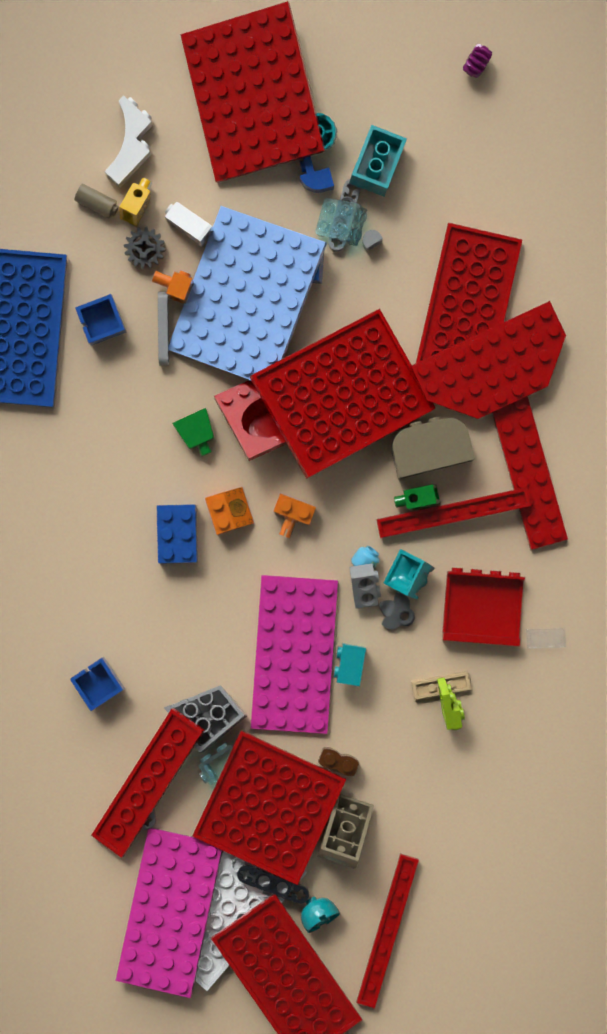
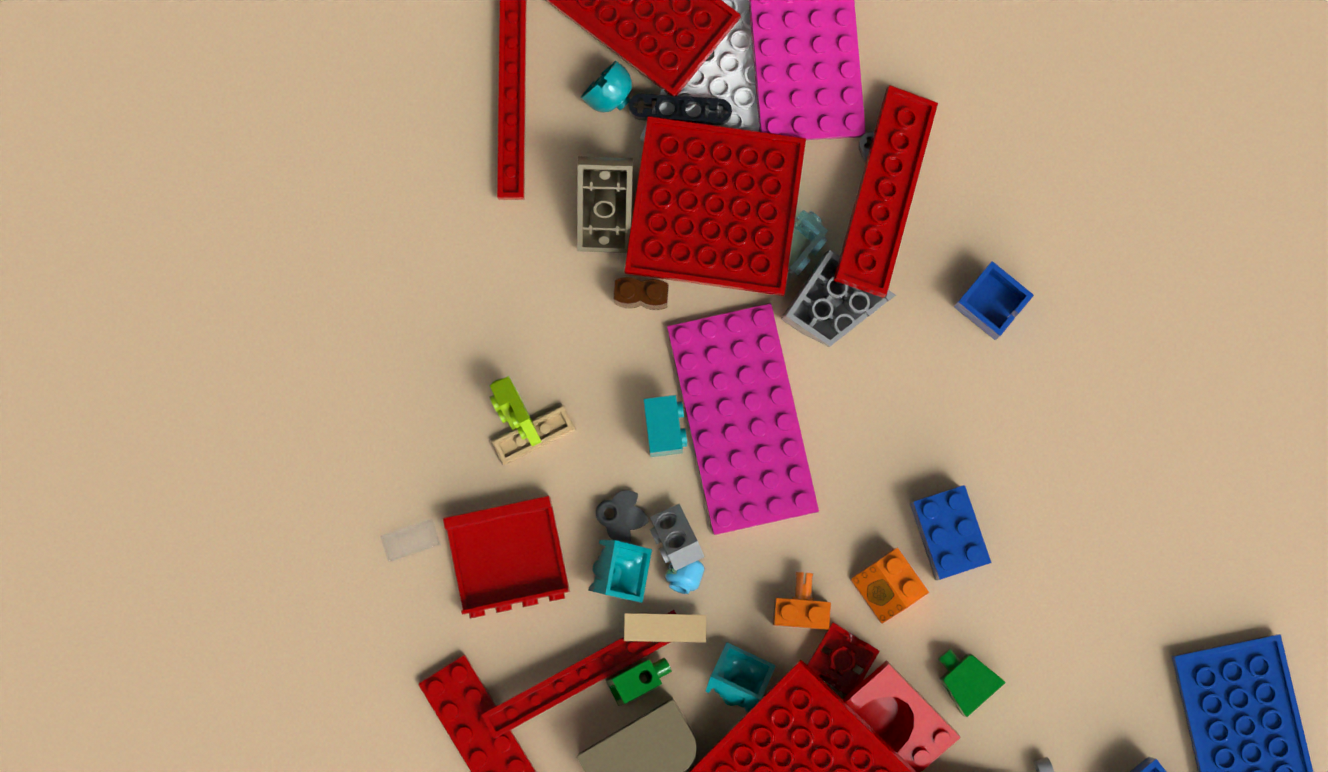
camera: 170 degrees right, 5 degrees down
(271, 474) = (846, 653): none -> red brick
(349, 479) = (740, 677): none -> teal brick
(390, 527) = (664, 628): none -> tan tile

